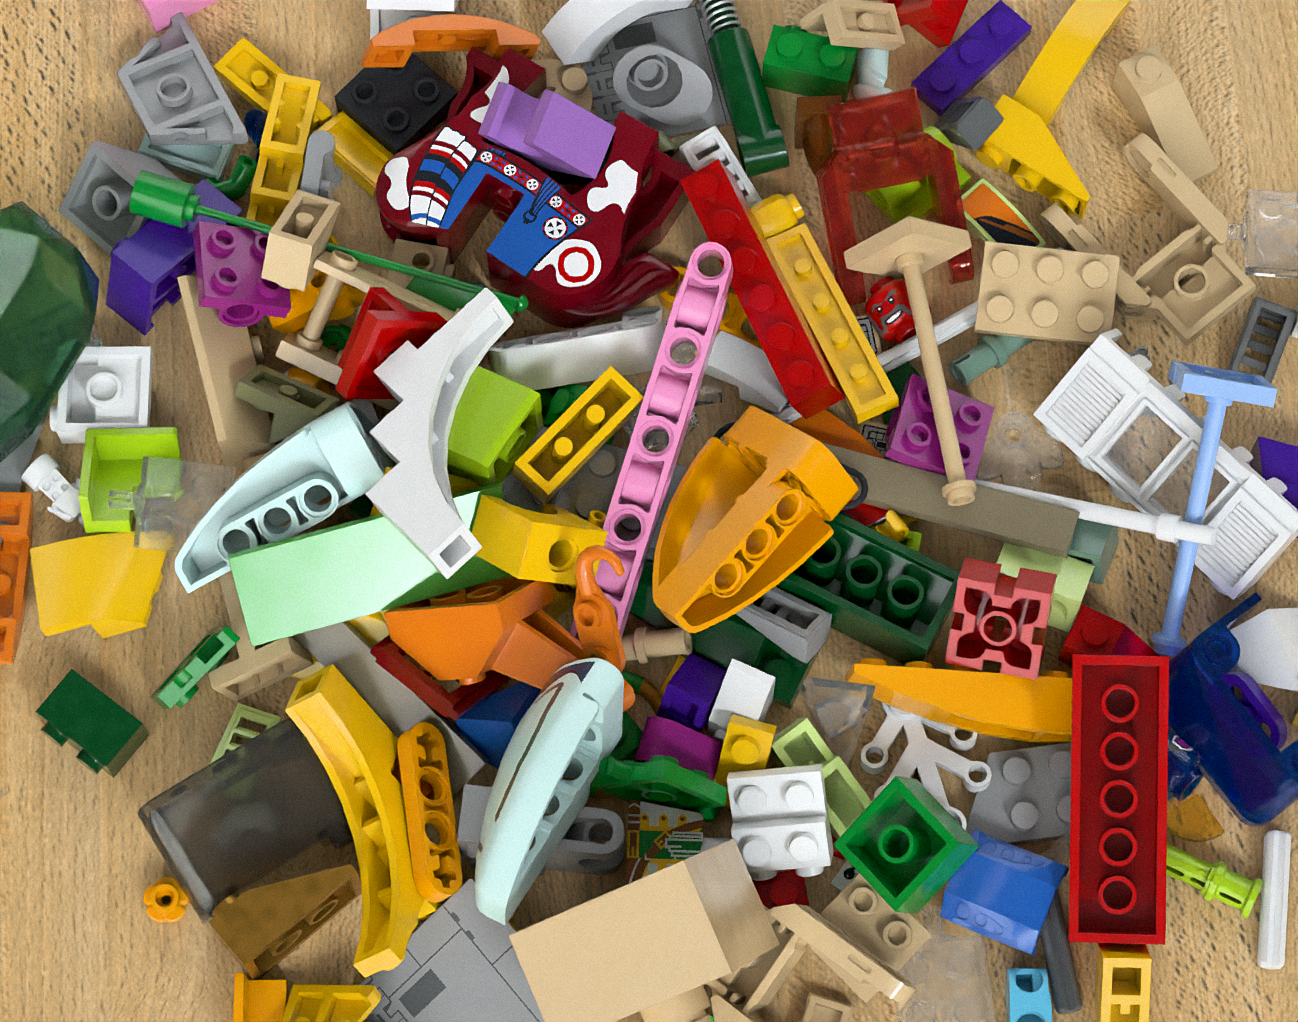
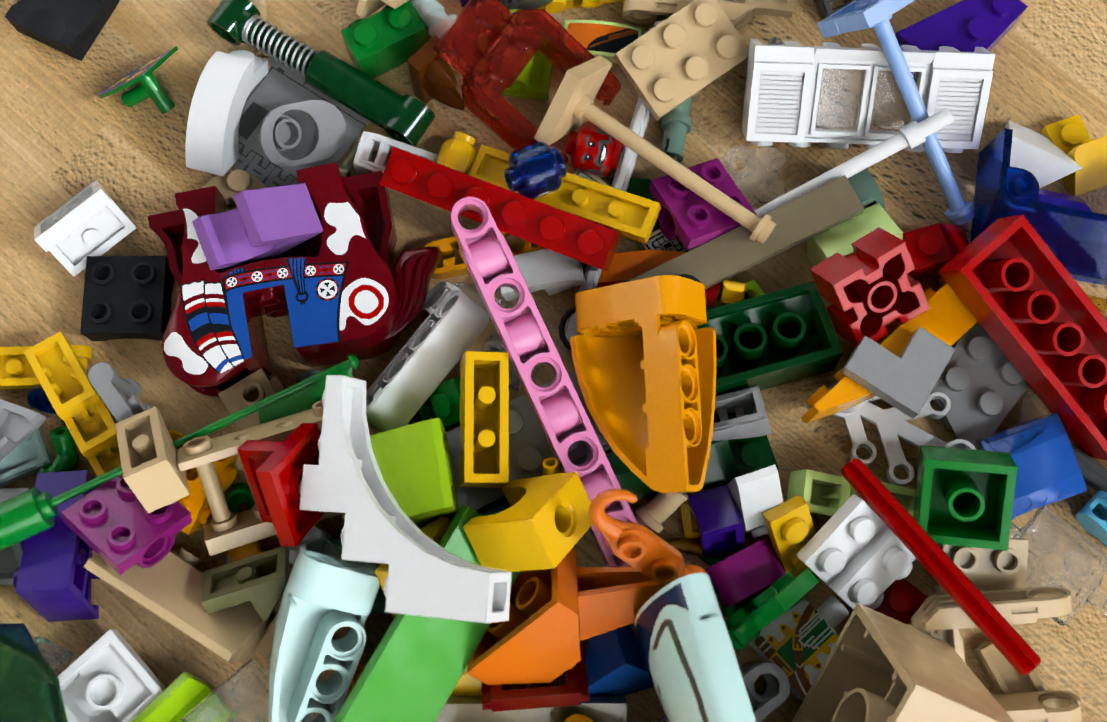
camera: 45 degrees left, 5 degrees up
(356, 151) = (132, 357): yellow tile -> none
(447, 33) = (118, 223): orange slope -> none
(817, 279) = (535, 170): none -> clear blue head
(827, 868) = (941, 567): none -> red axle
(839, 713) = (820, 446): clear slope -> none
(951, 713) = (904, 379): none -> light grey tile

